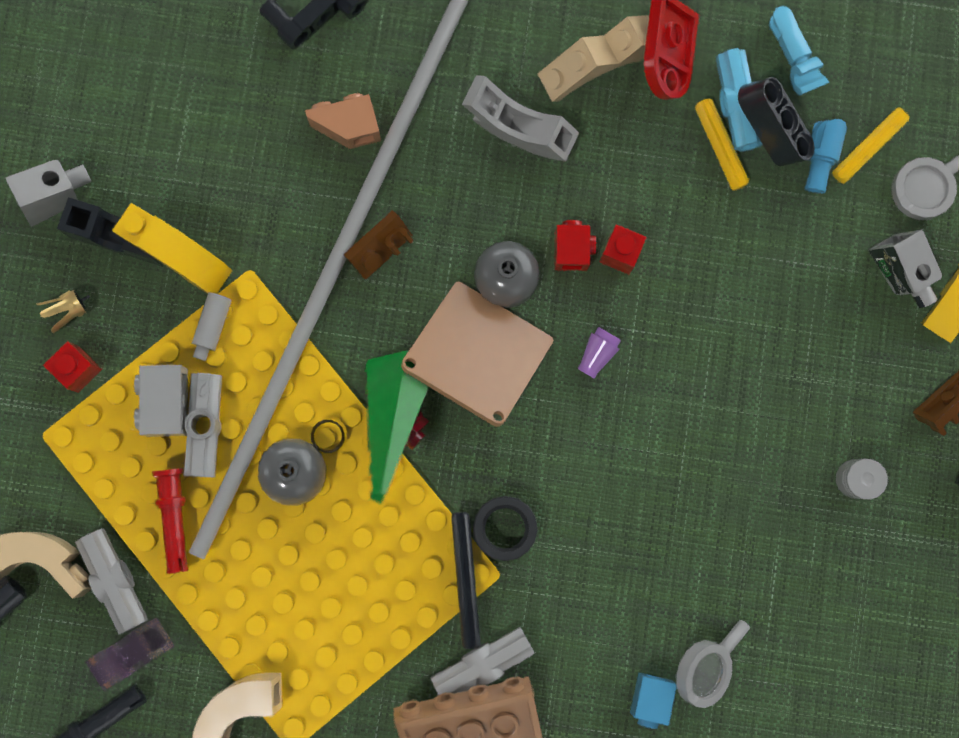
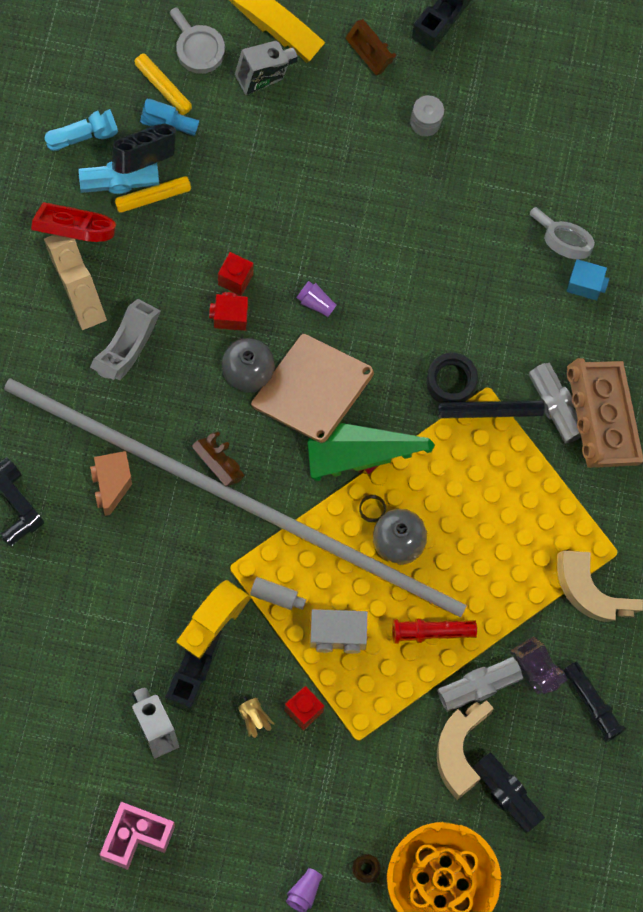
camera: 85 degrees left, 10 degrees down
(203, 402) = (378, 603): light grey piece -> none

